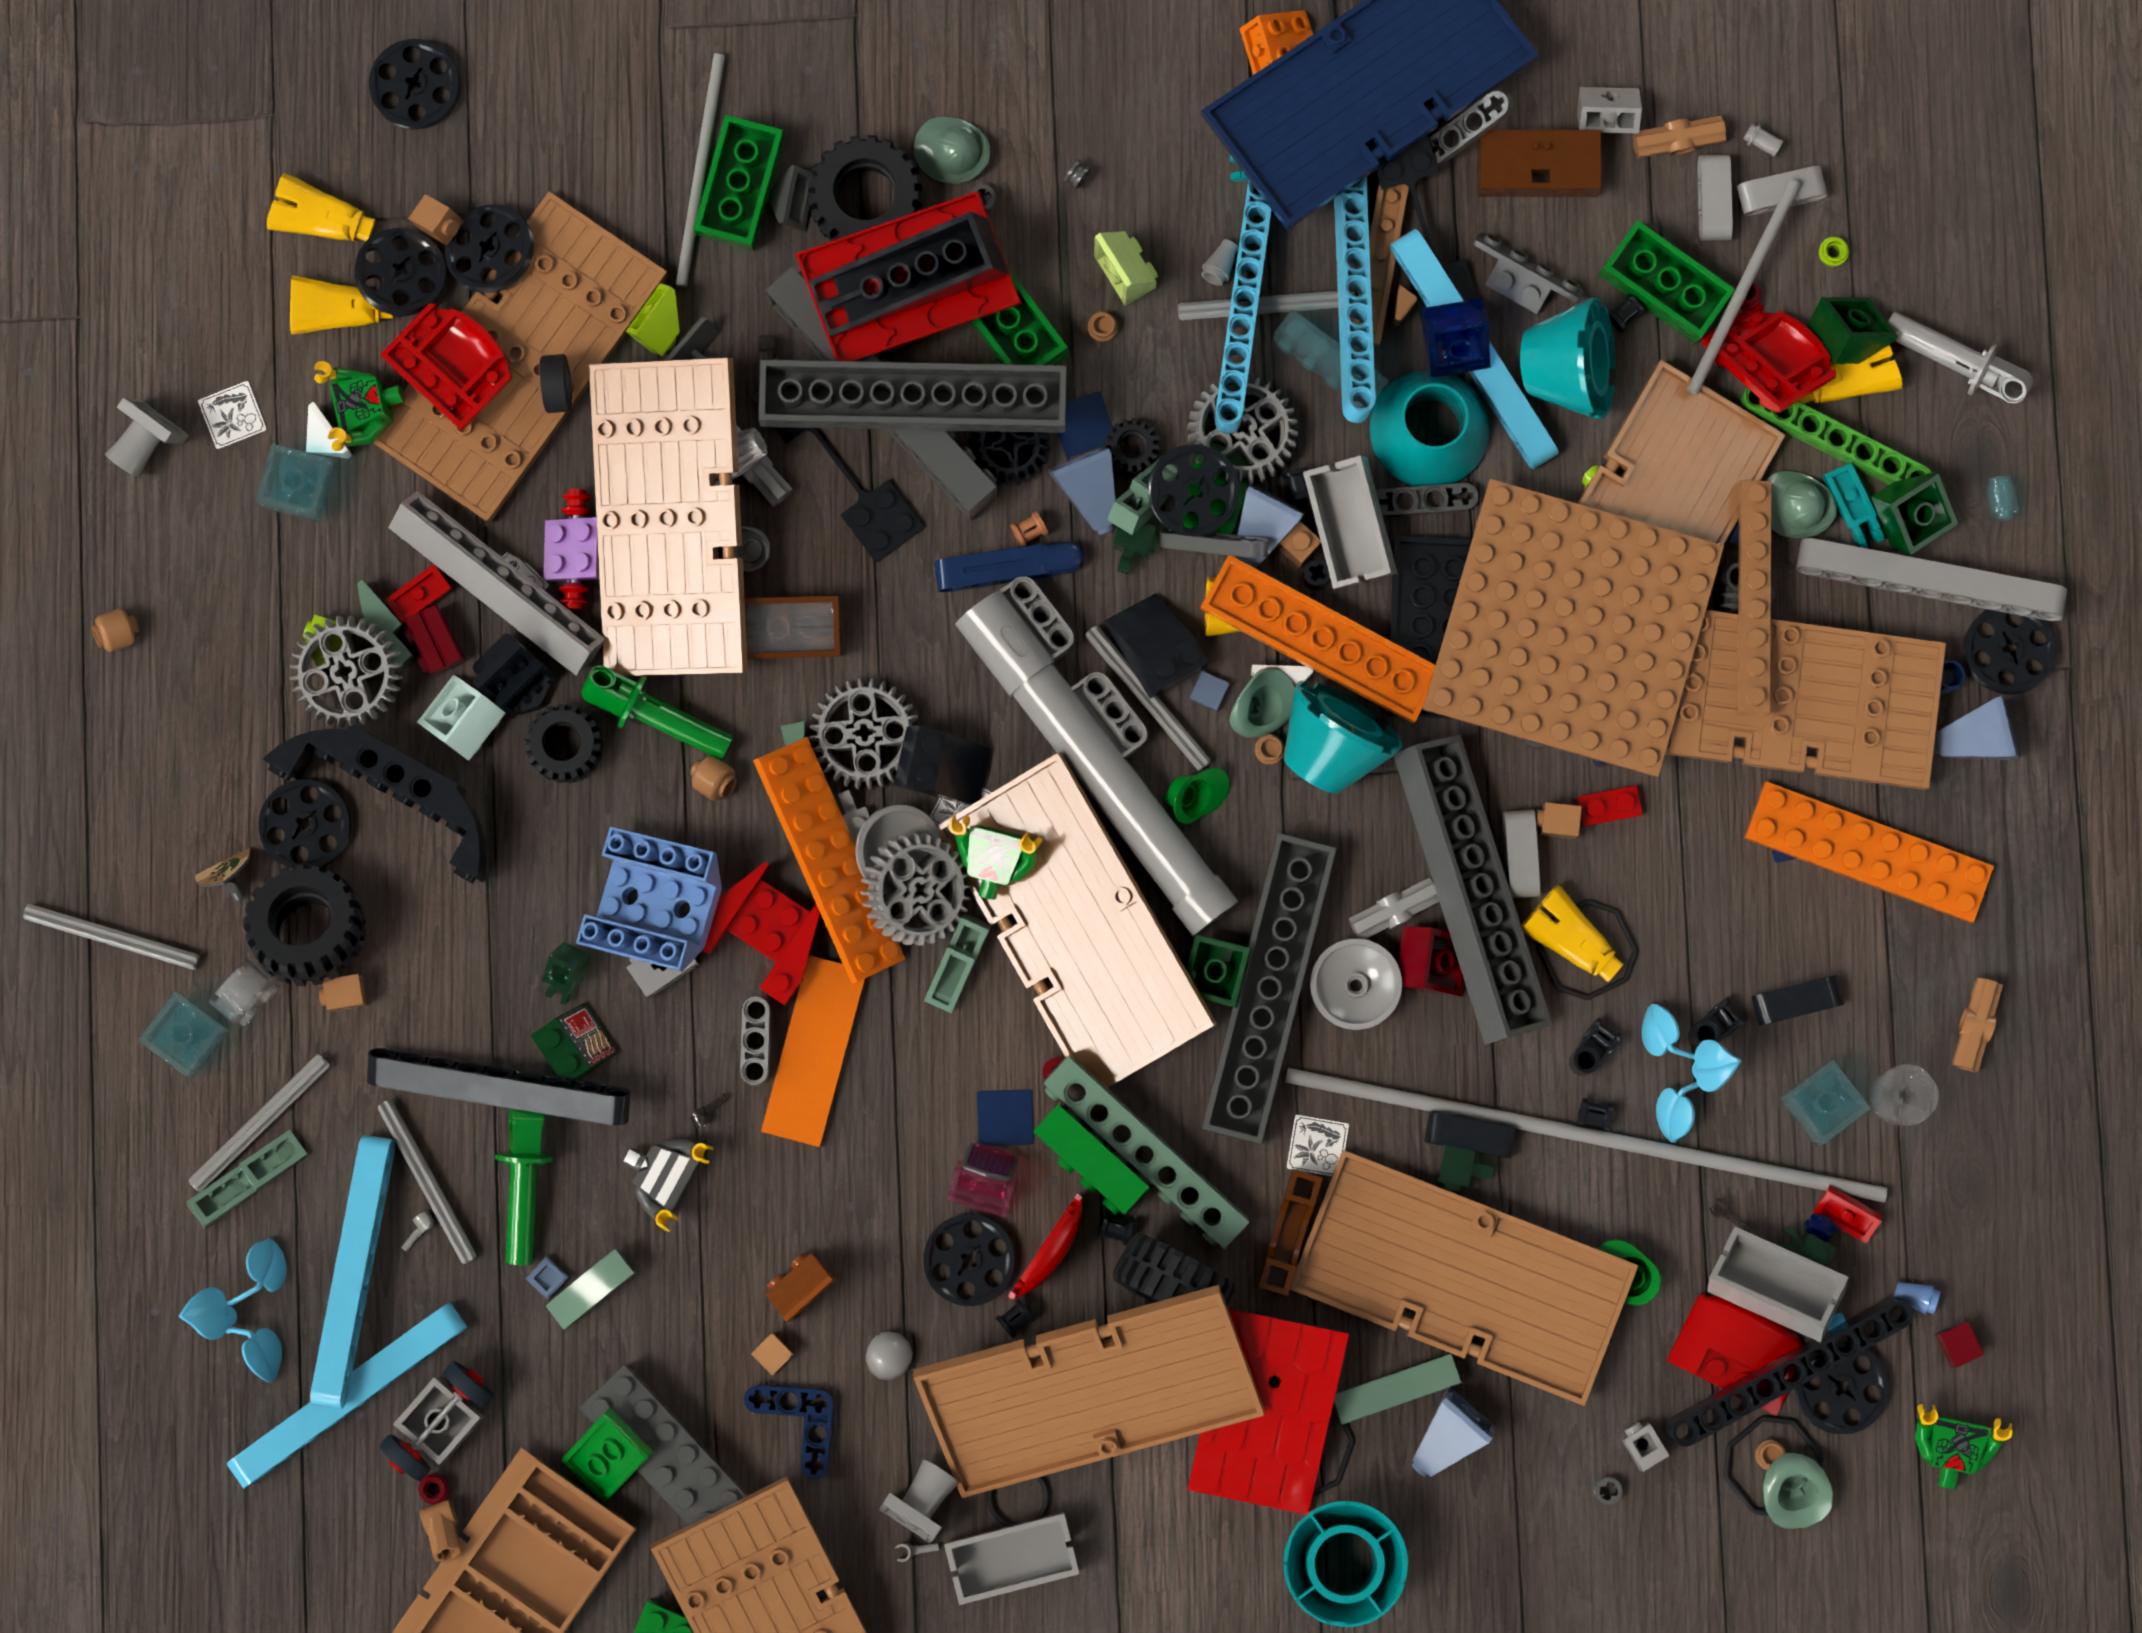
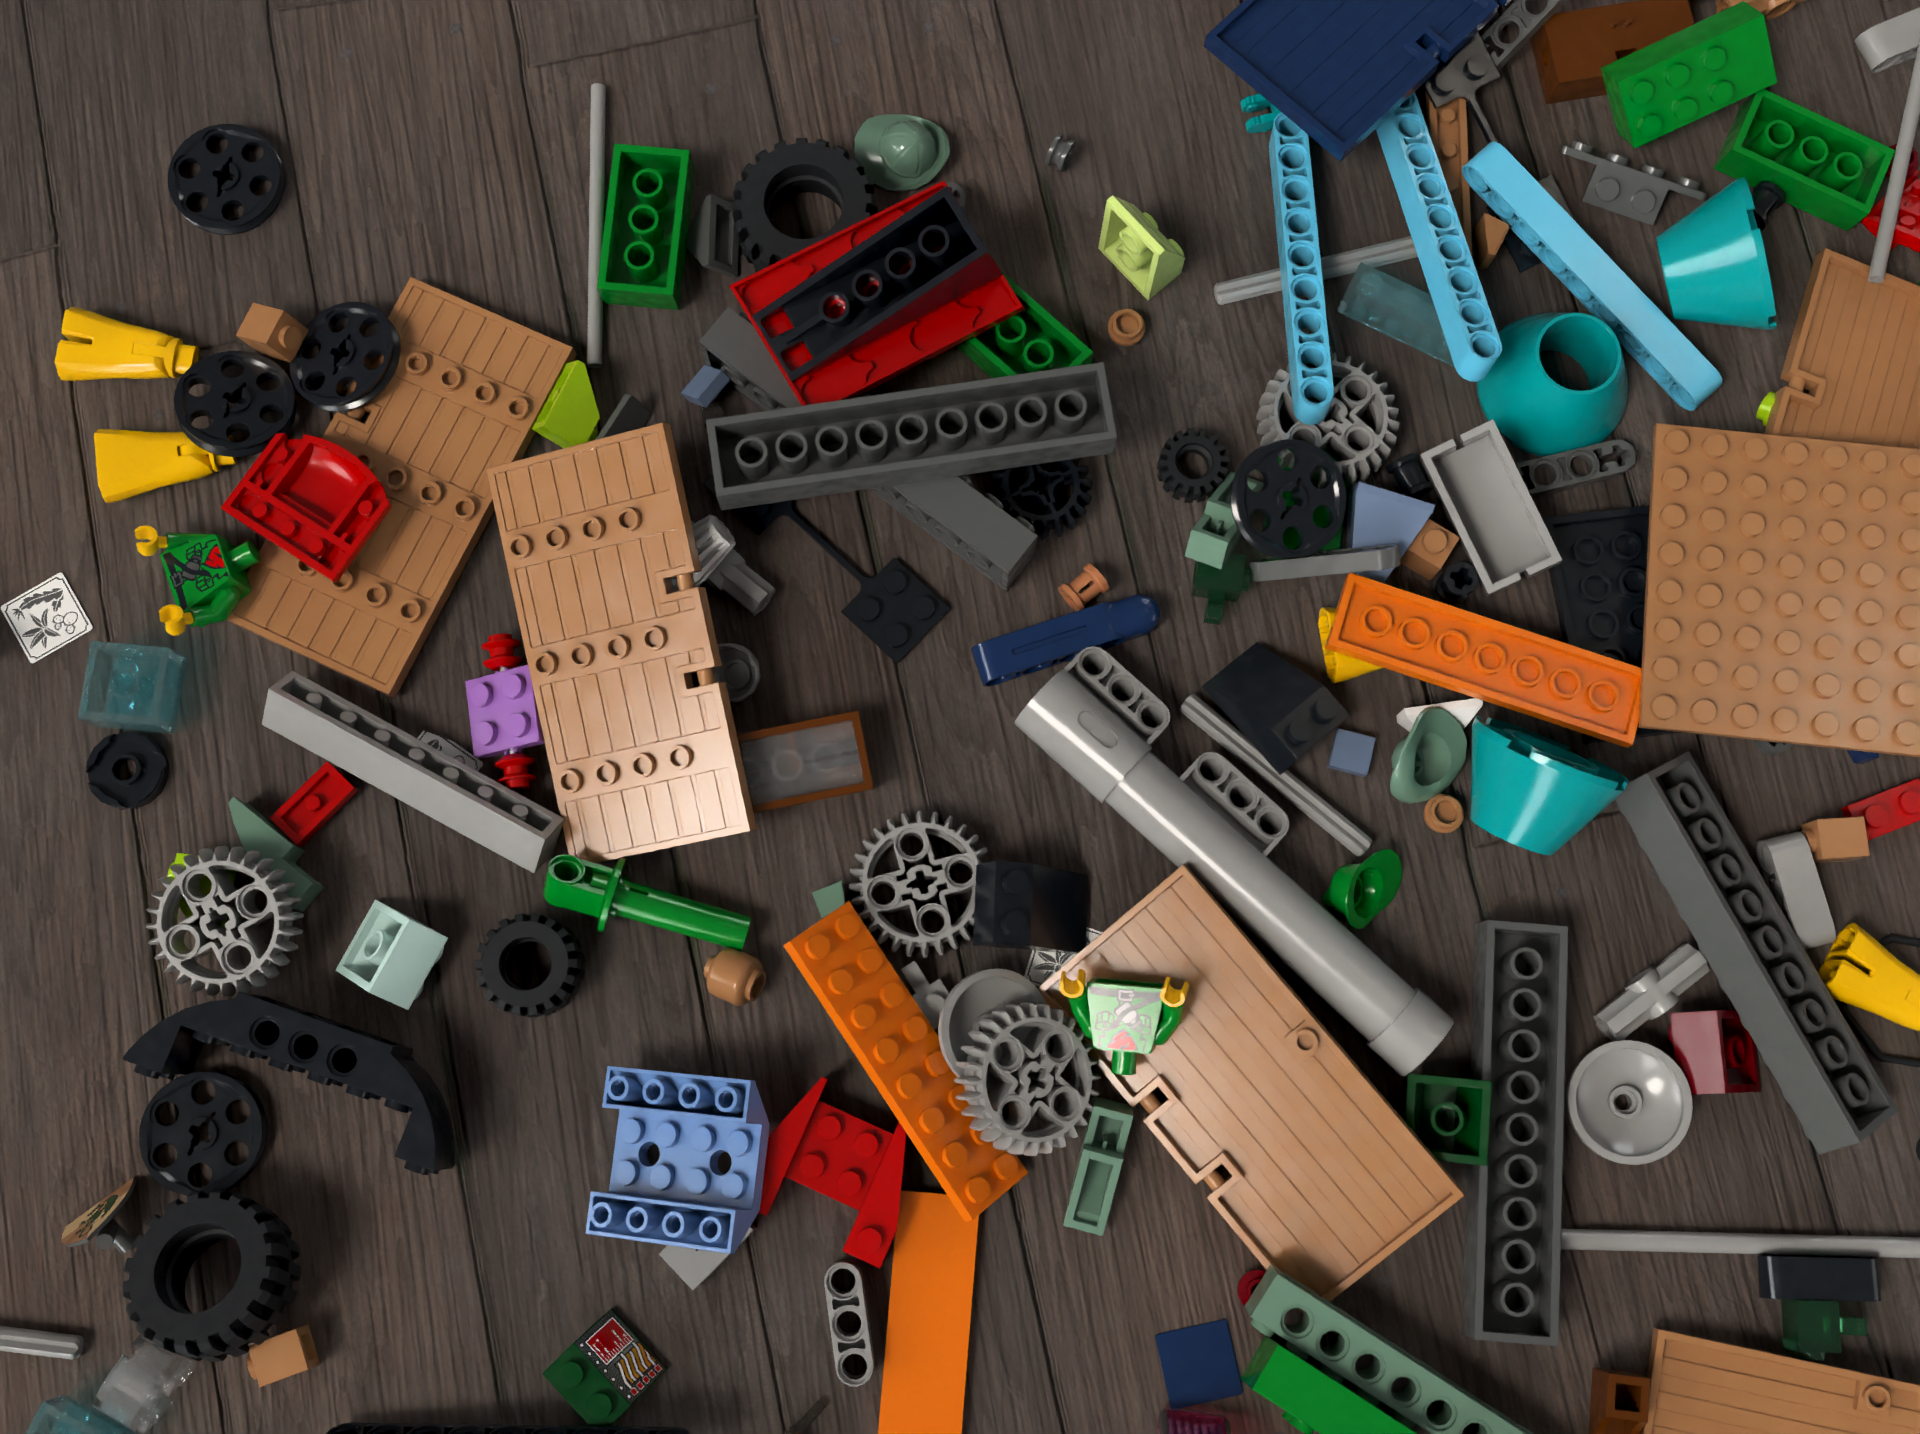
camera: 10 degrees left, 5 degrees down
(288, 560) = (146, 783): none -> black tile
(317, 435) = (155, 632): white slope -> none
(434, 641) = (341, 860): dark red brick -> none
(513, 677) = (452, 890): black piece -> none
(555, 383) = (448, 502): black tyre -> none
(565, 970) = (577, 1271): clear green brick -> none
(764, 319) = (705, 386): none -> sand blue tile
(1085, 424) = (1134, 452): dark blue sticker -> none
(1089, 486) = (1151, 522): sand blue slope -> none
(1220, 263) = (1255, 230): light grey cone -> none
(1316, 1145) = (1616, 1326): white sticker -> none
(1456, 337) = (1577, 257): clear blue slope -> none
(1582, 201) = (1689, 74): none -> green brick
(1714, 197) = (1833, 55): light grey beam -> none

